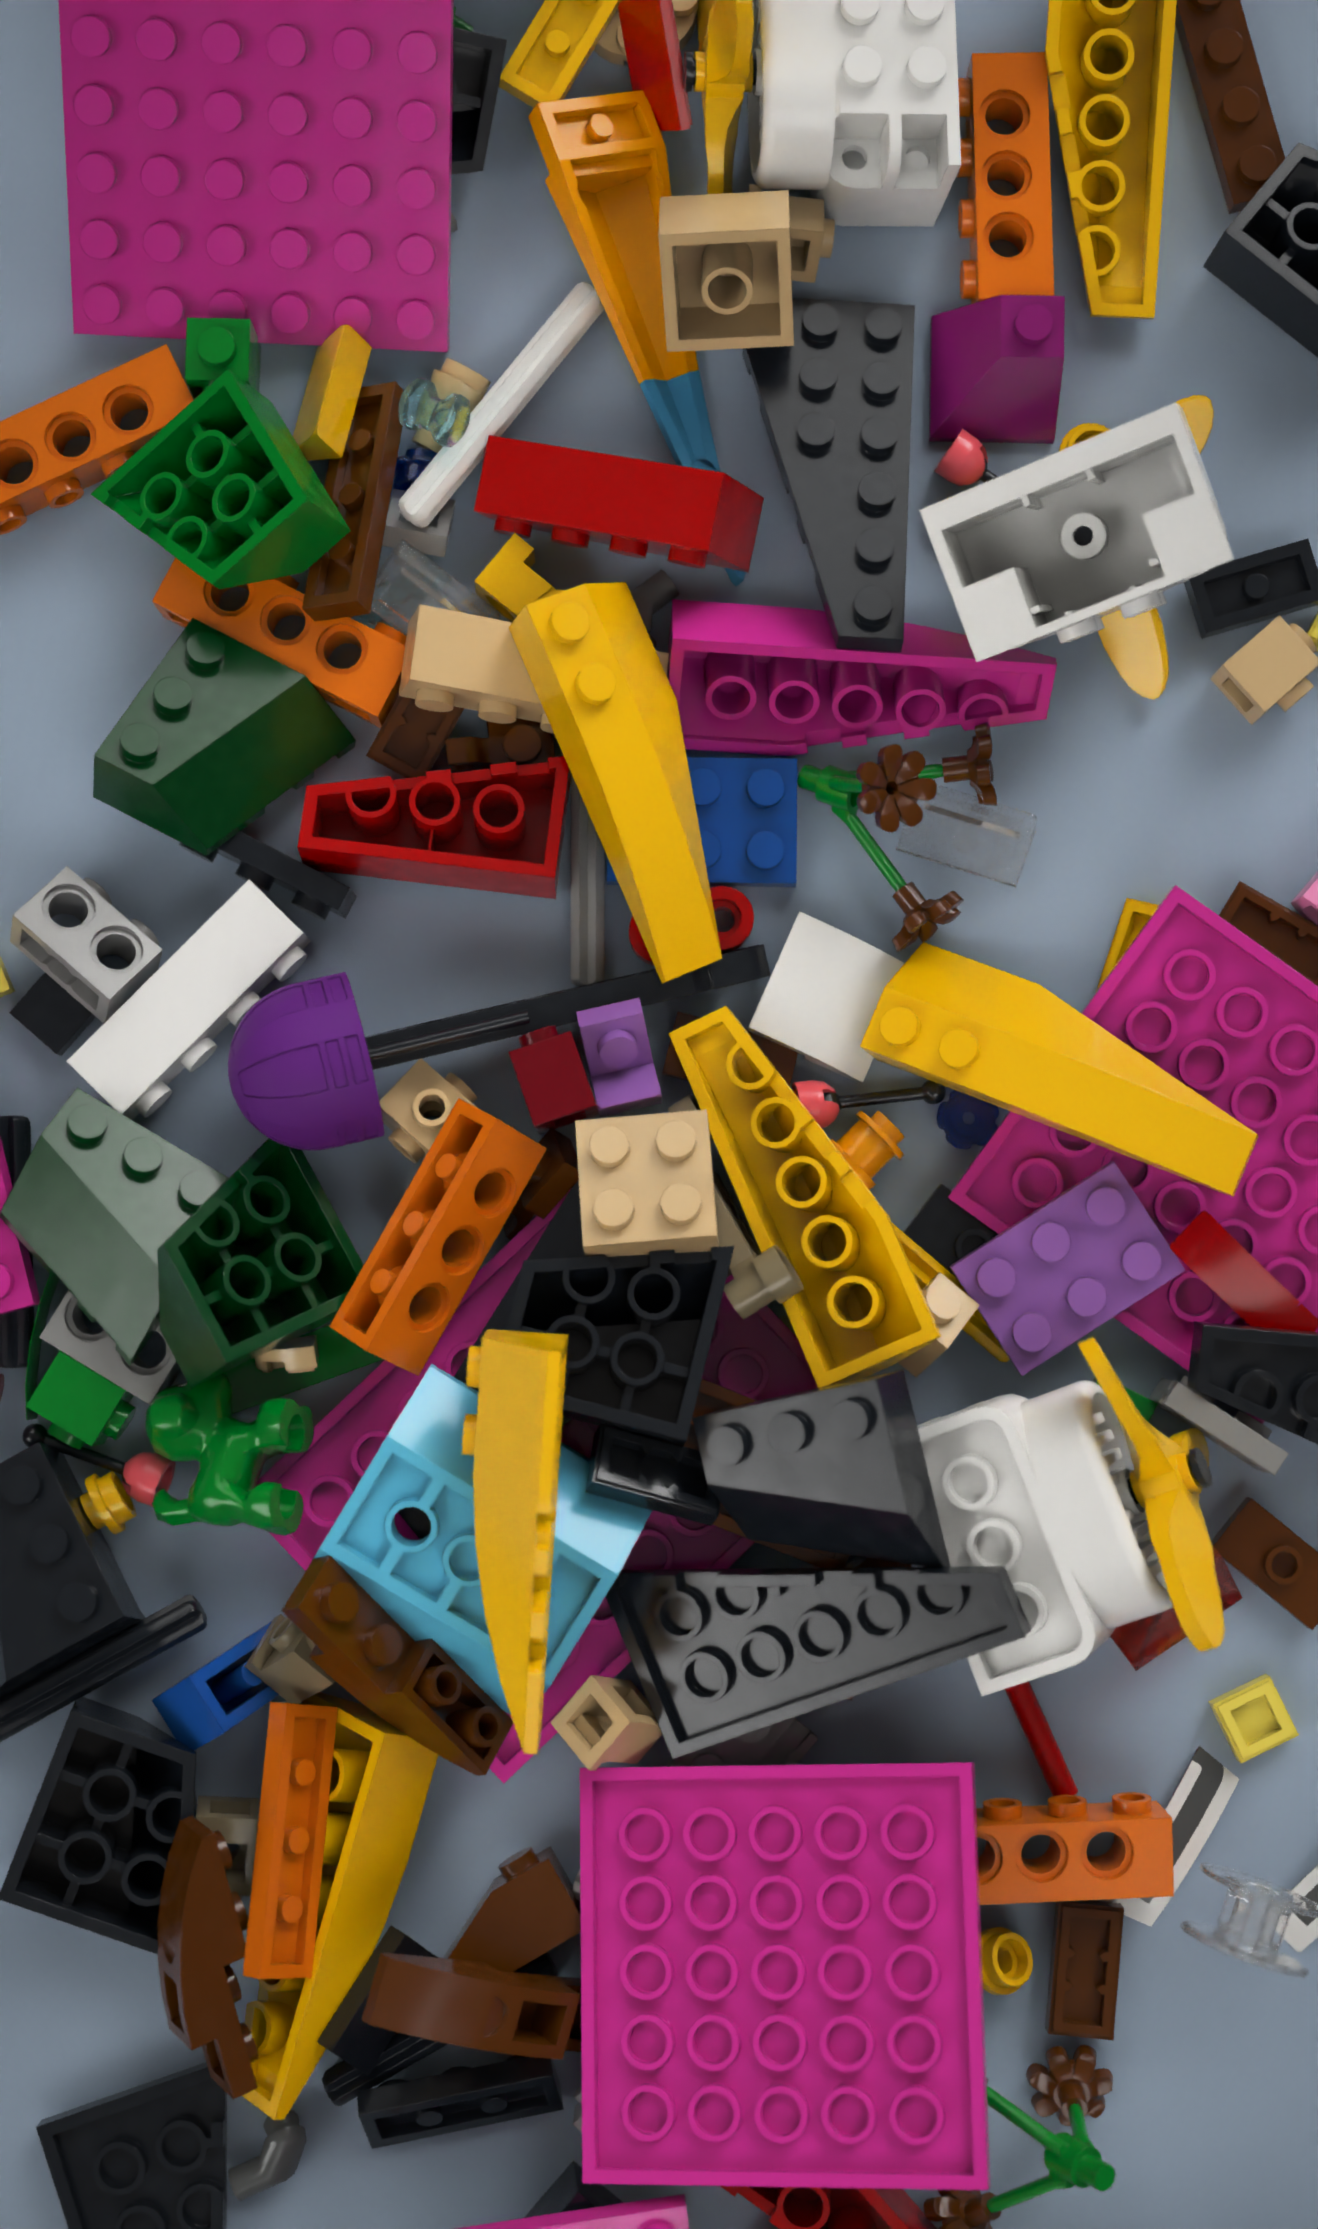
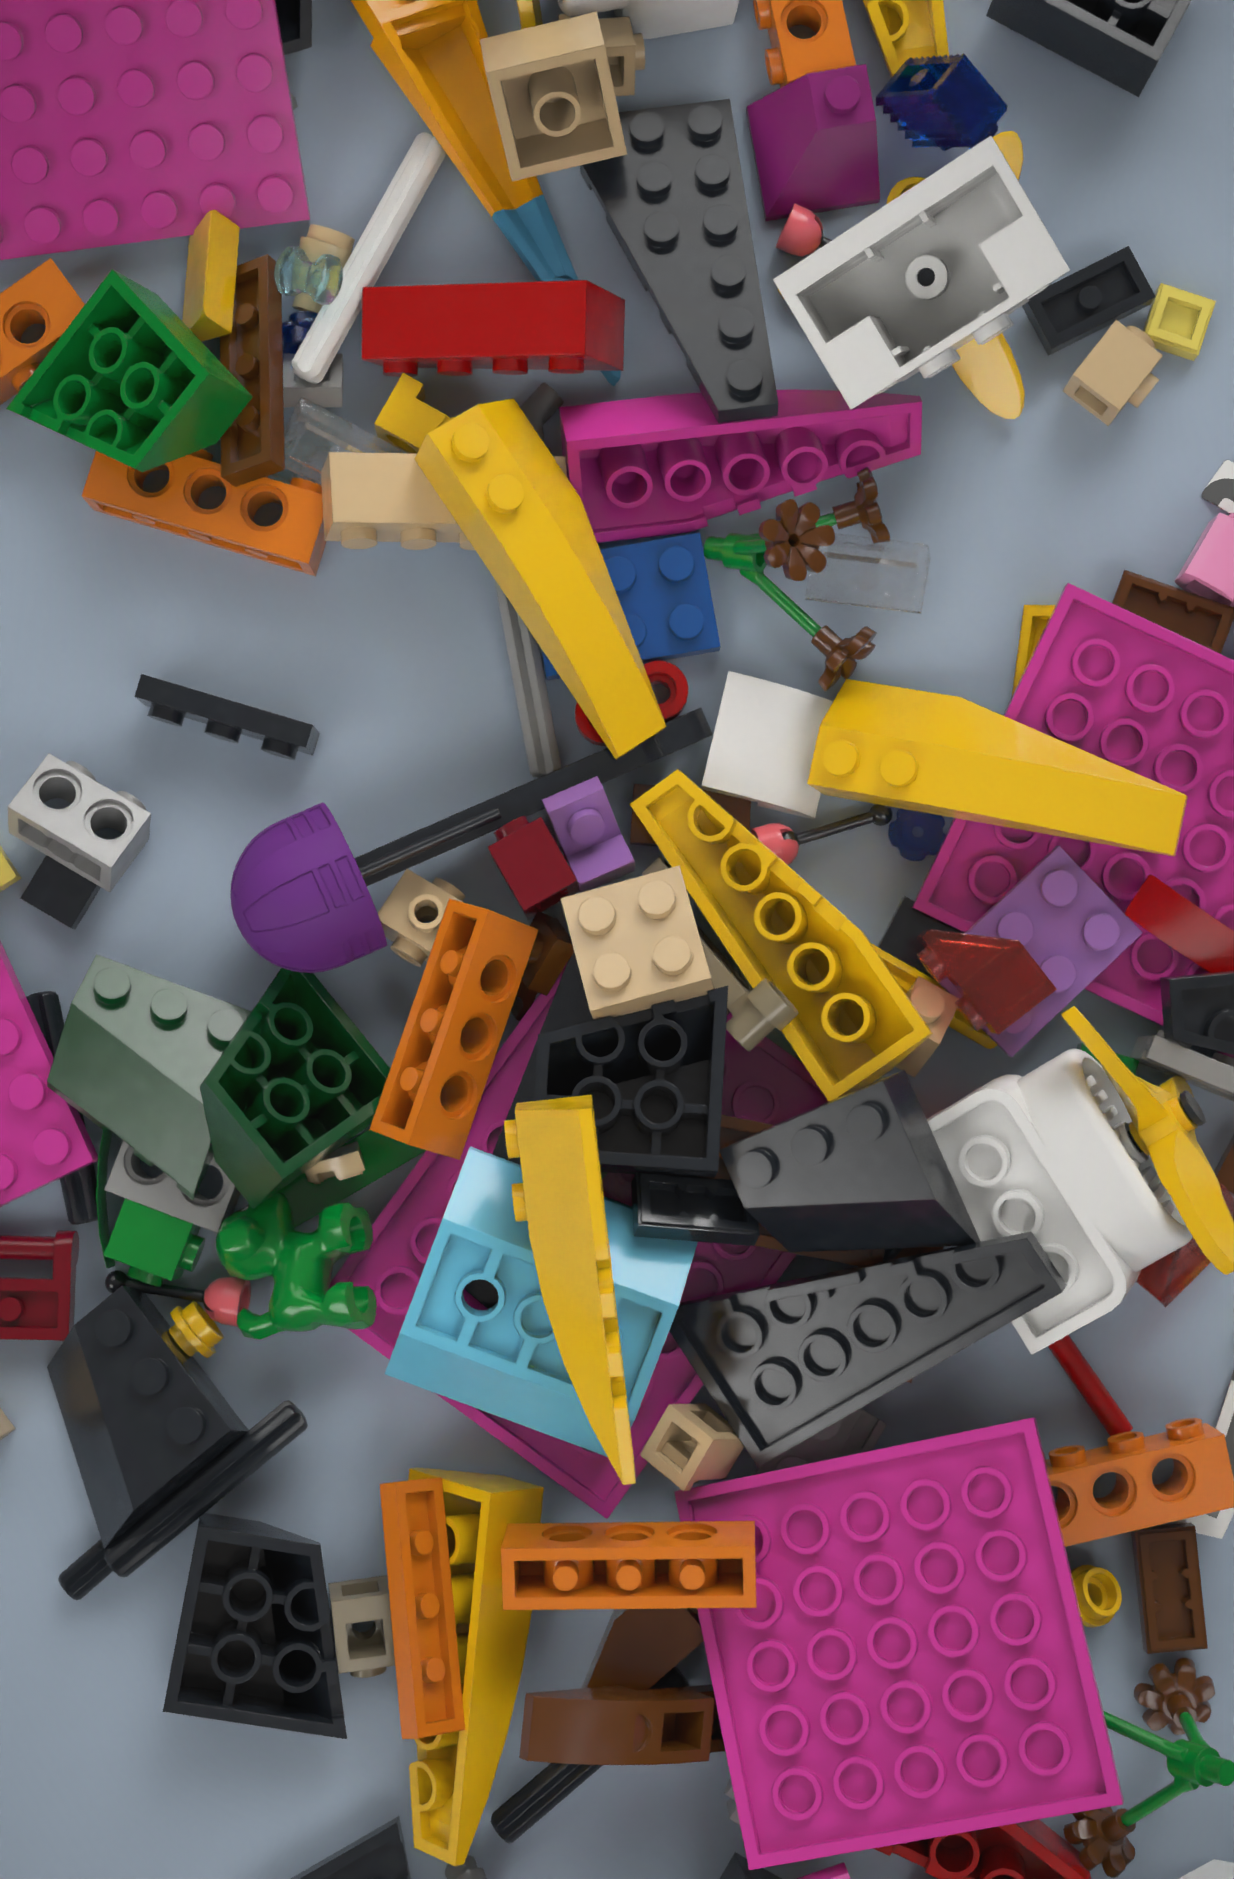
camera: 10 degrees left, 0 degrees up
(189, 1002) = (185, 857): white brick -> none
(196, 1943) = (353, 1717): reddish brown slope -> none
(215, 740) = (163, 612): dark green wedge -> none
(215, 1695) = (342, 1475): blue slope -> none
(221, 345) = (97, 251): green brick -> none
(285, 1663) = (401, 1433): dark tan brick -> none
(346, 2032) = (507, 1773): black plate -> none
(391, 1674) = (489, 1438): reddish brown slope -> none
(412, 738) = (344, 578): reddish brown plate -> none
(450, 829) = (390, 655): red wedge -> none
(459, 2100) = (620, 1816): black plate -> none
(505, 743) = (437, 572): reddish brown plate -> none
(516, 1838) = (629, 1565): none -> orange brick
(870, 1145) = (833, 872): light orange brick -> none
(1016, 1286) = (990, 973): none -> clear red slope
(1137, 352) = (942, 102): none -> clear blue brick

